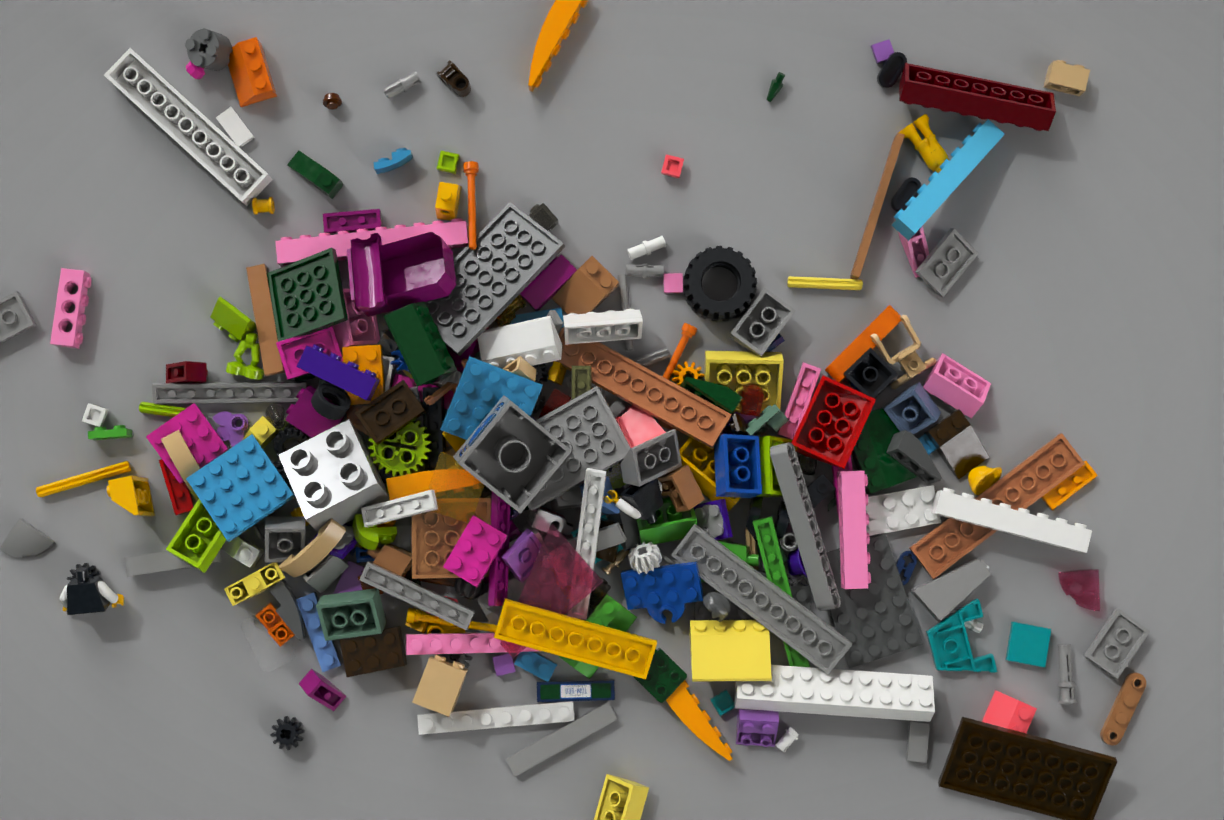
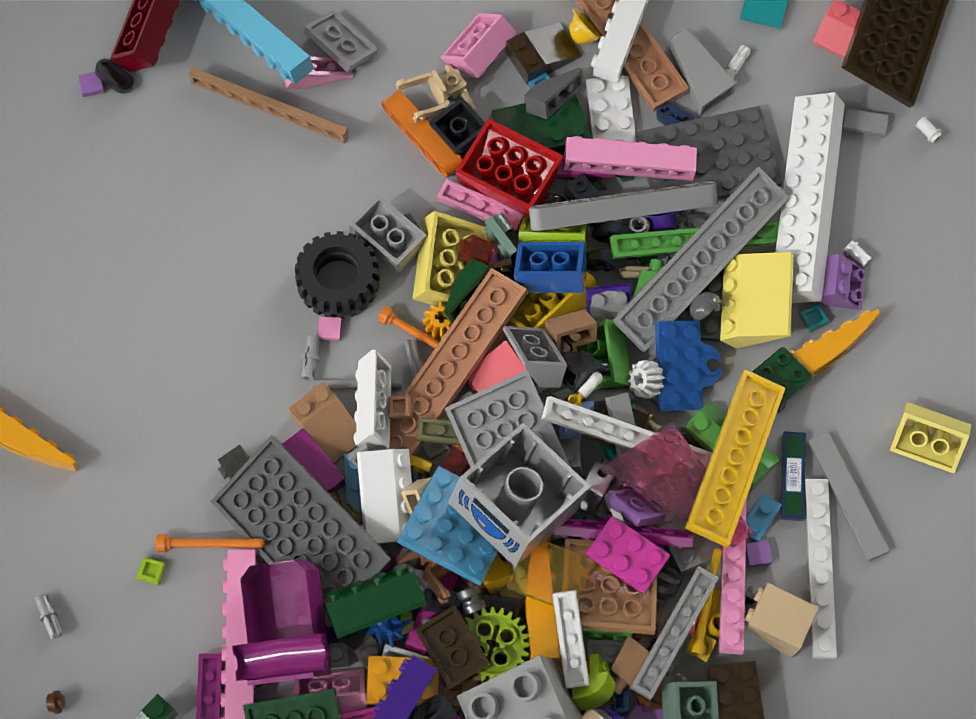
camera: 80 degrees left, 15 degrees down
(399, 158) = (139, 628): dark azure slope -> none
(432, 424) = (471, 605): none -> flat silver wheel
(447, 200) = (199, 569): yellow torso -> none
(453, 77) = (49, 554): dark brown piece -> none
(602, 349) = (399, 407): none -> nougat tile
(646, 247) = (284, 353): white pin -> none
(672, 166) = (192, 316): coral plate -> none
(775, 86) = (114, 199): dark green bar -> none
(824, 283) = (348, 168): light yellow axle -> none
(905, 192) = (258, 76): black tile -> none
(912, 409) = (501, 89): sand blue slope -> none
(915, 801) = (929, 130): none -> white pin
(929, 148) = (208, 46): yellow piece -> none
(951, 644) = (759, 77): teal wing -> none

